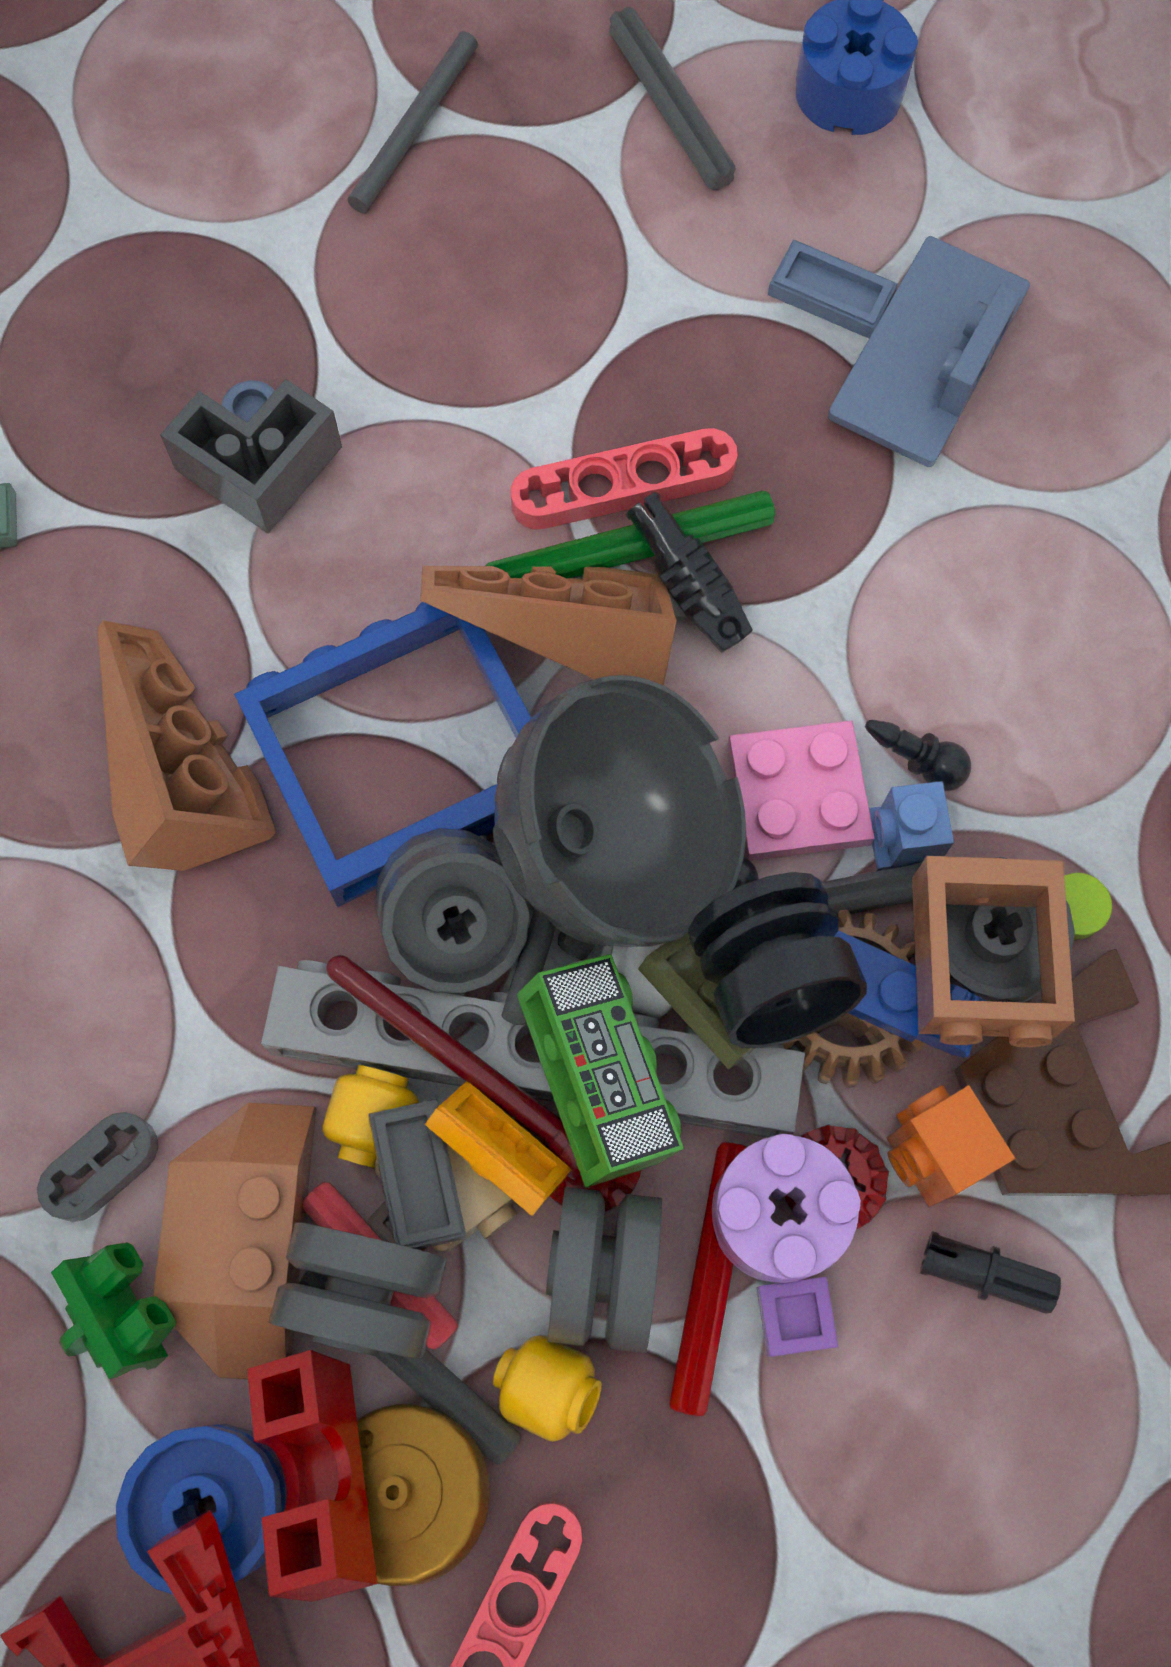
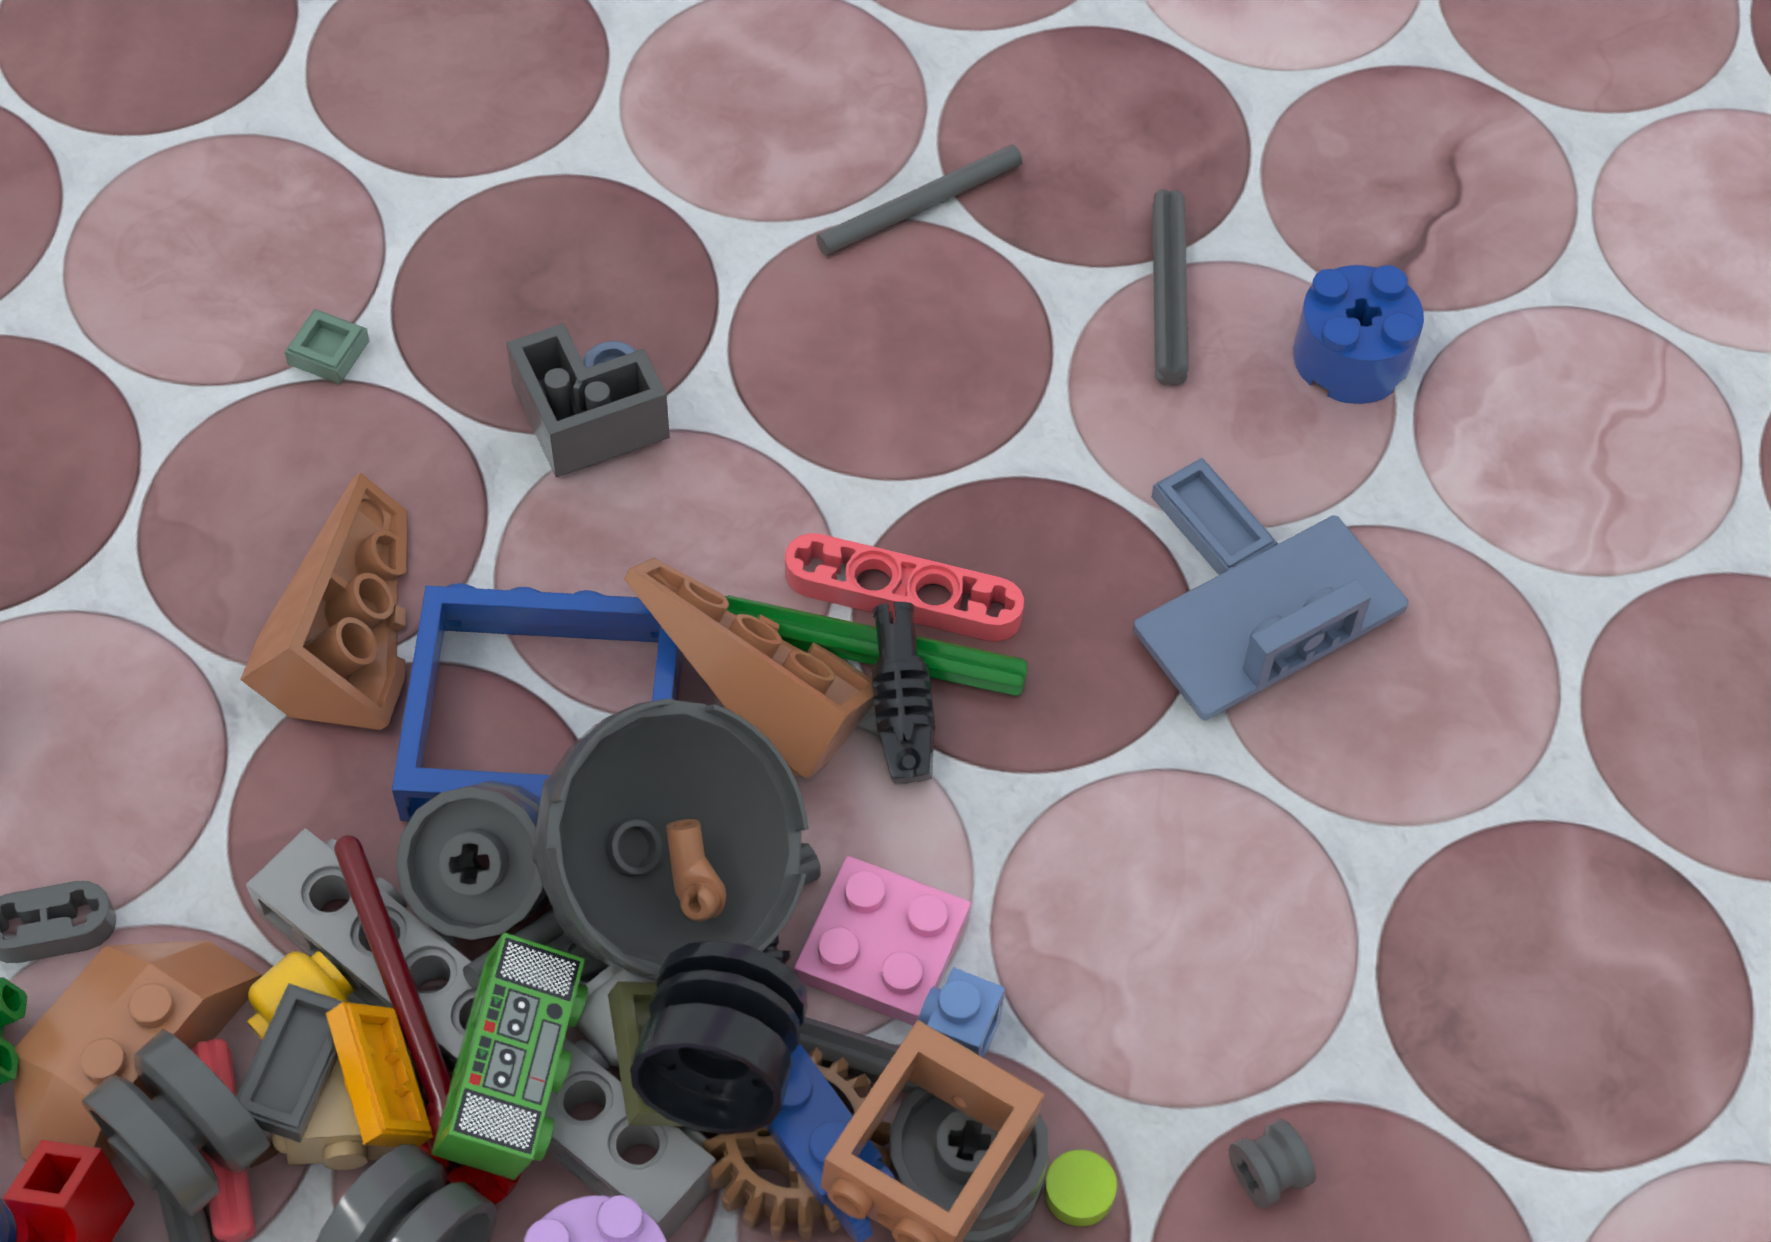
camera: 30 degrees right, 15 degrees down
(642, 828) = (694, 879): none -> nougat arm
(925, 755) = (1036, 990): black bar -> none

